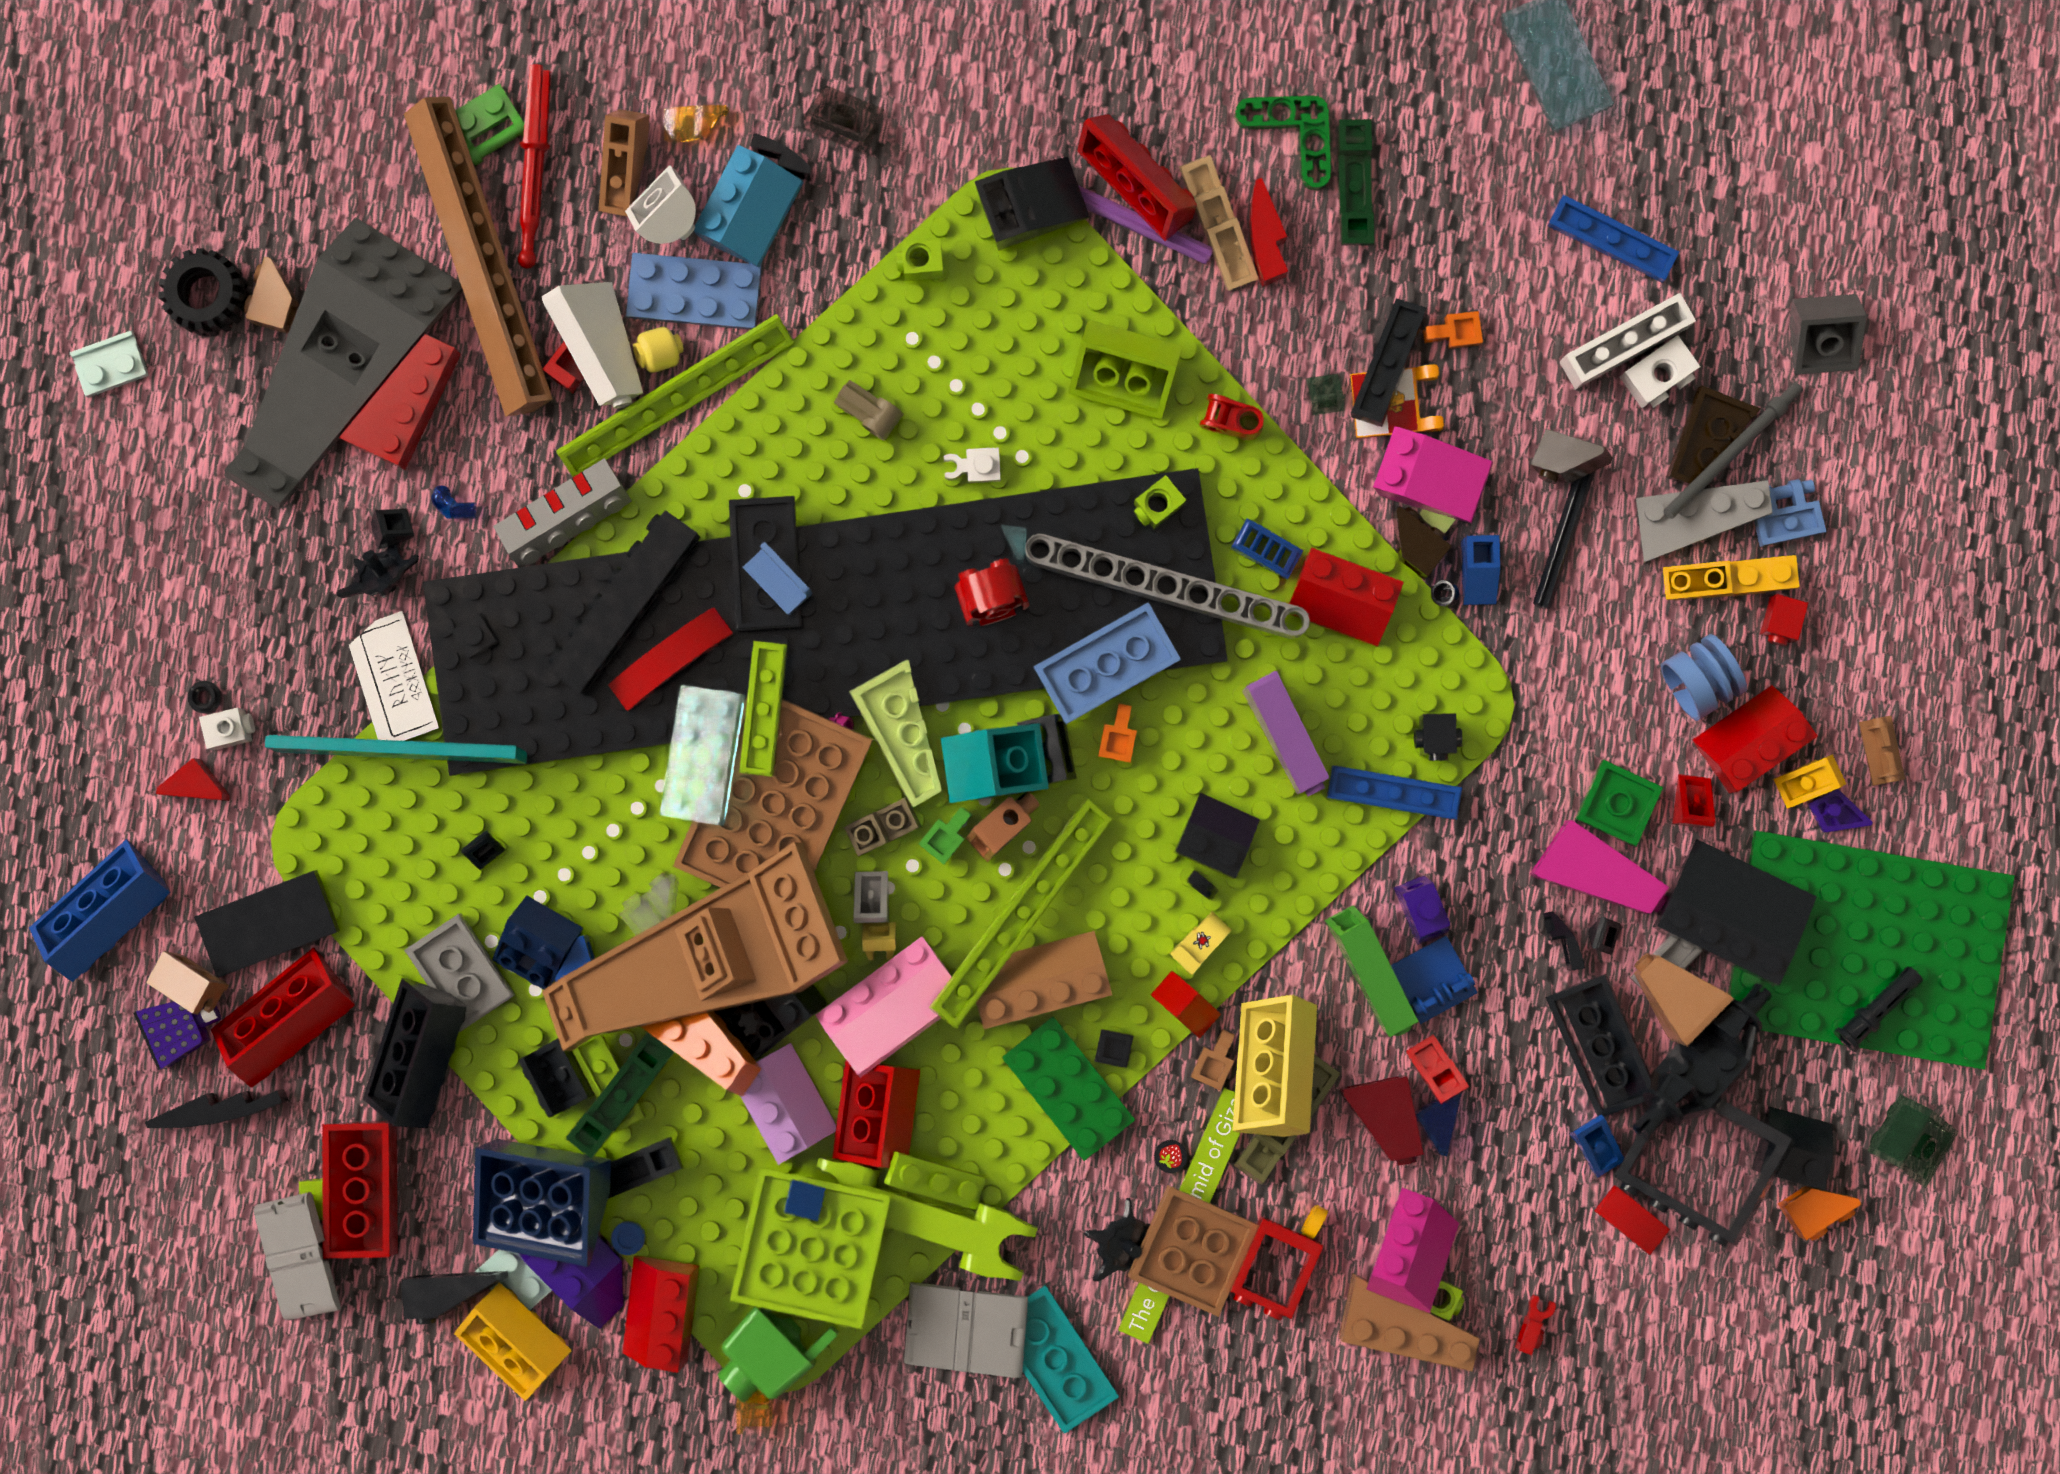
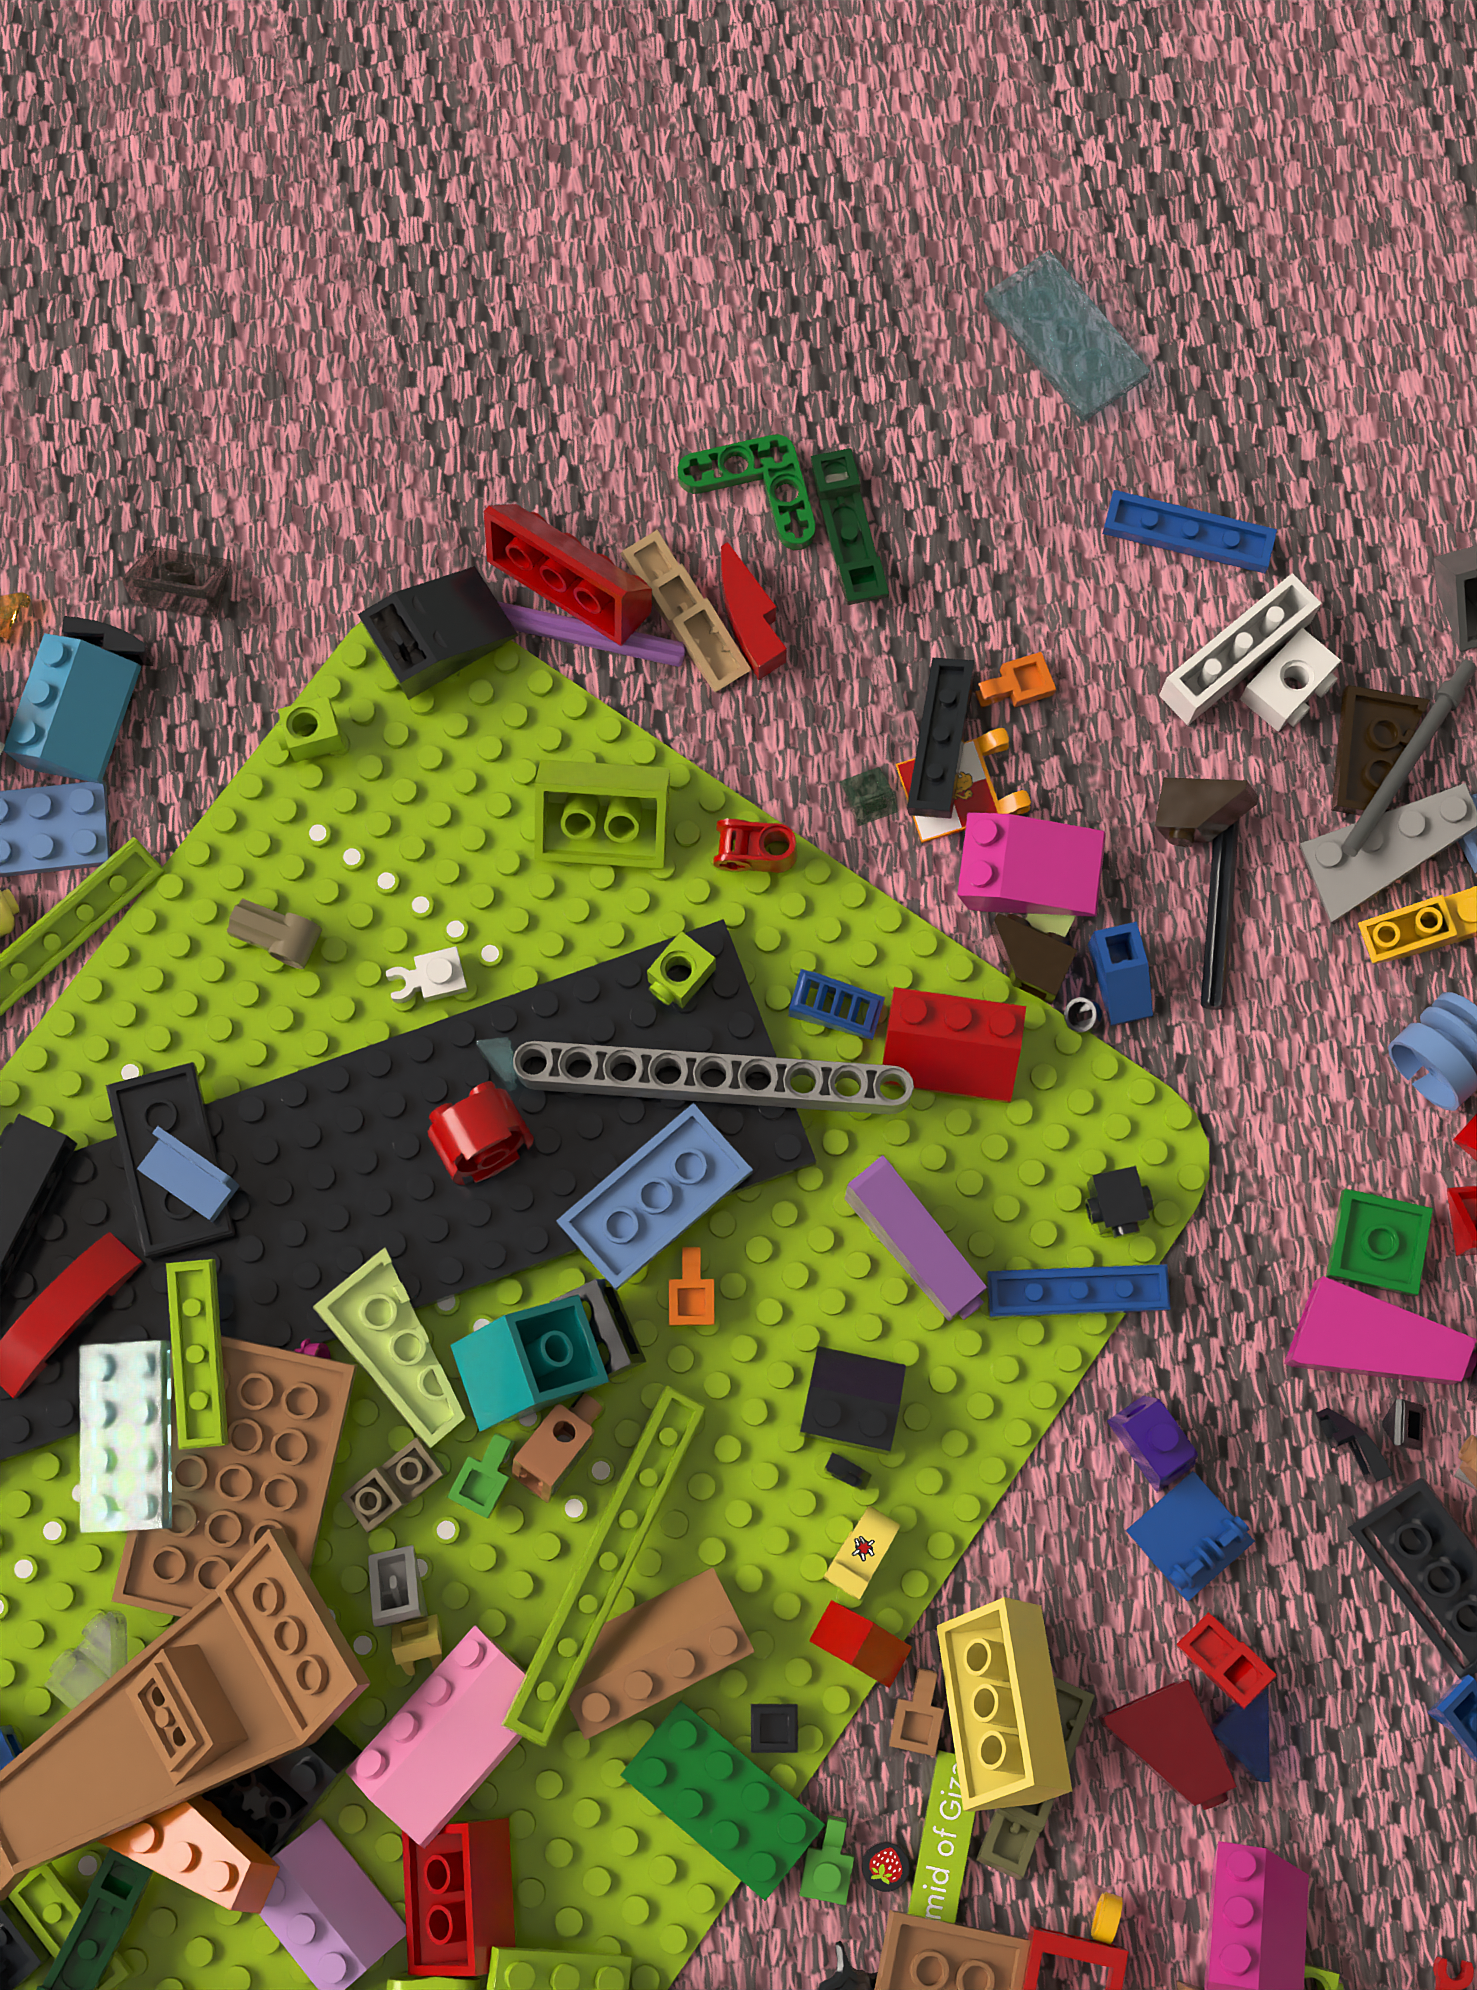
camera: 10 degrees left, 10 degrees down
(1130, 1150) = (827, 1868): none -> bright green plate
(1372, 971) = (1105, 1541): bright green slope -> none

